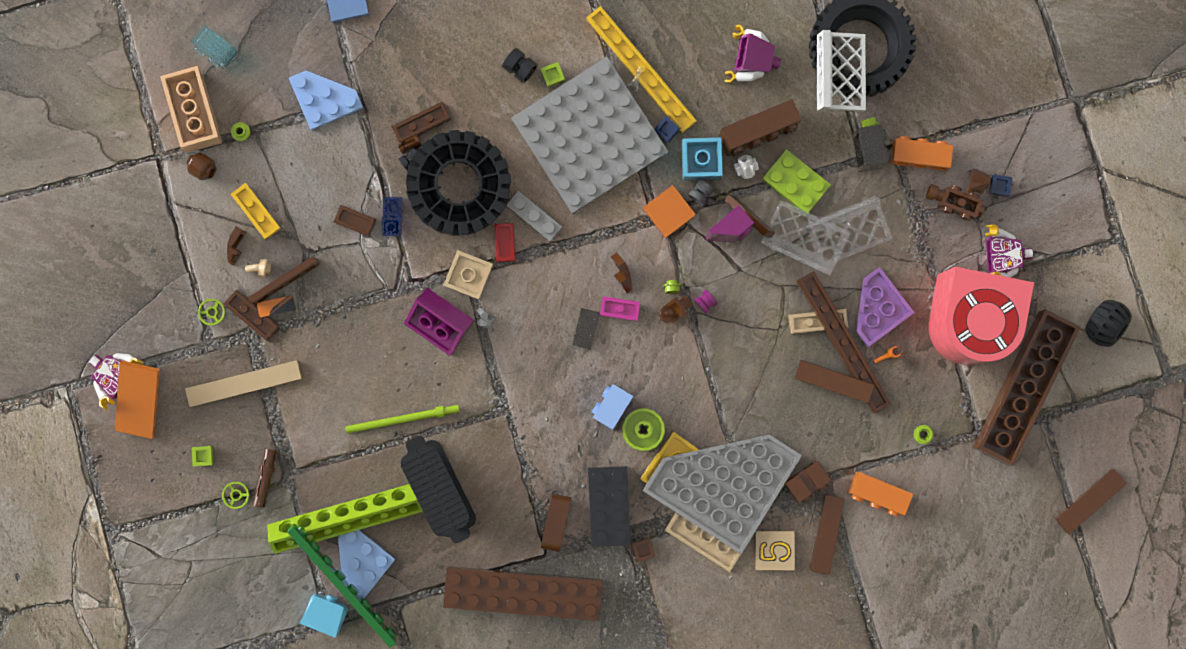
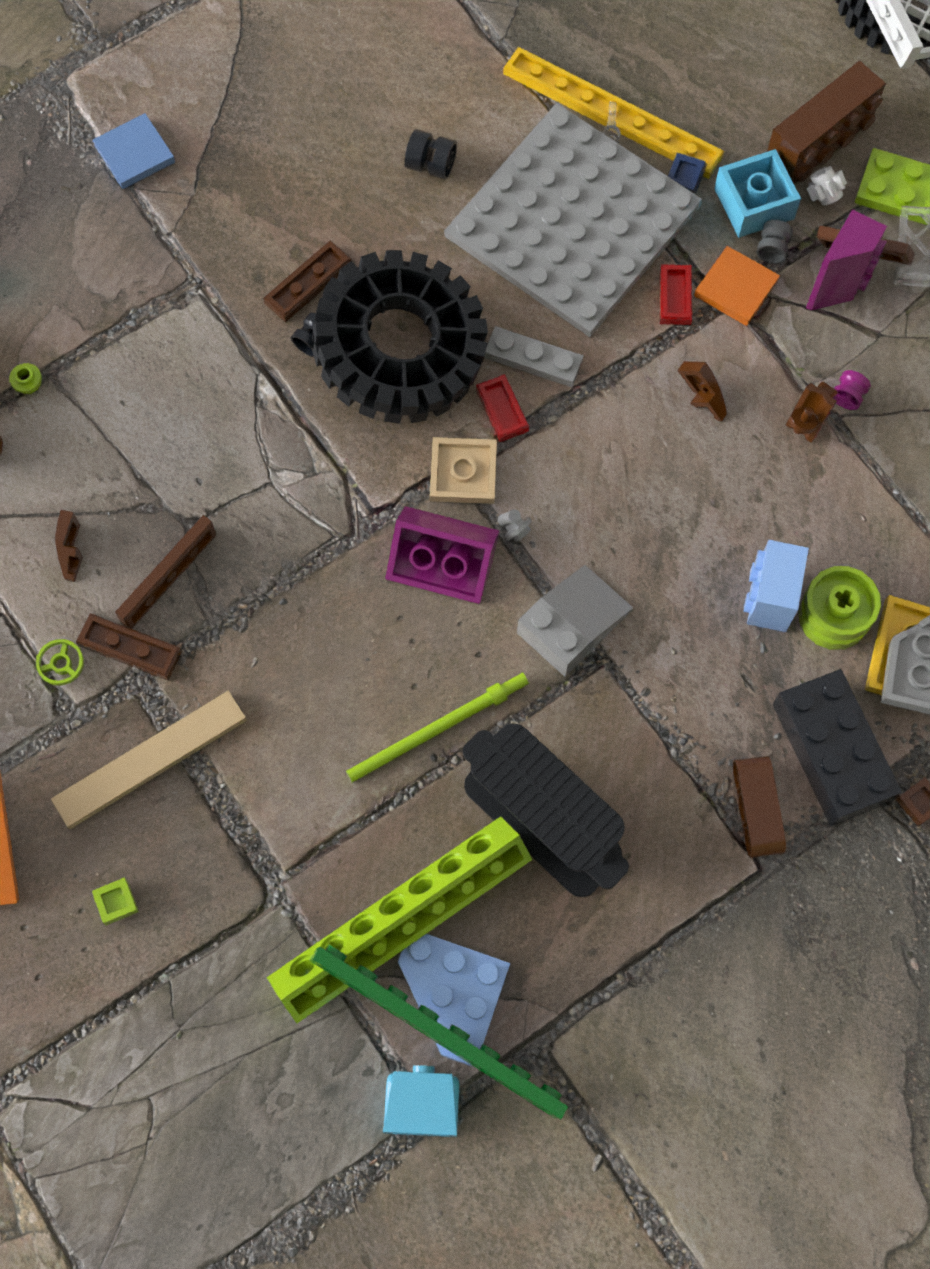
camera: 20 degrees left, 15 degrees down
(232, 497) = (187, 944): lime piece -> none
(255, 211) = (86, 484): yellow plate -> none
(263, 268) = (125, 563): tan plate -> none
(264, 478) = (235, 902): reddish brown pin -> none
(276, 306) = (165, 618): sticker -> none
(323, 99) = (143, 295): light blue plate -> none
(354, 220) = (252, 451): reddish brown tile -> none
(392, 216) = (309, 424): clear blue slope -> none
(412, 142) = (300, 313): reddish brown piece -> none
(498, 383) = (572, 619): none -> light grey slope
(523, 593) = (753, 942): reddish brown brick -> none
(552, 74) = (484, 154): lime plate -> none
(586, 328) = (680, 492): clear smoke tile -> none
(620, 308) = (722, 443): dark pink plate -> none
(631, 204) = (676, 294): none -> red tile
(672, 287) = (789, 387): lime plate -> none
(754, 56) = (771, 41): magenta torso -> none

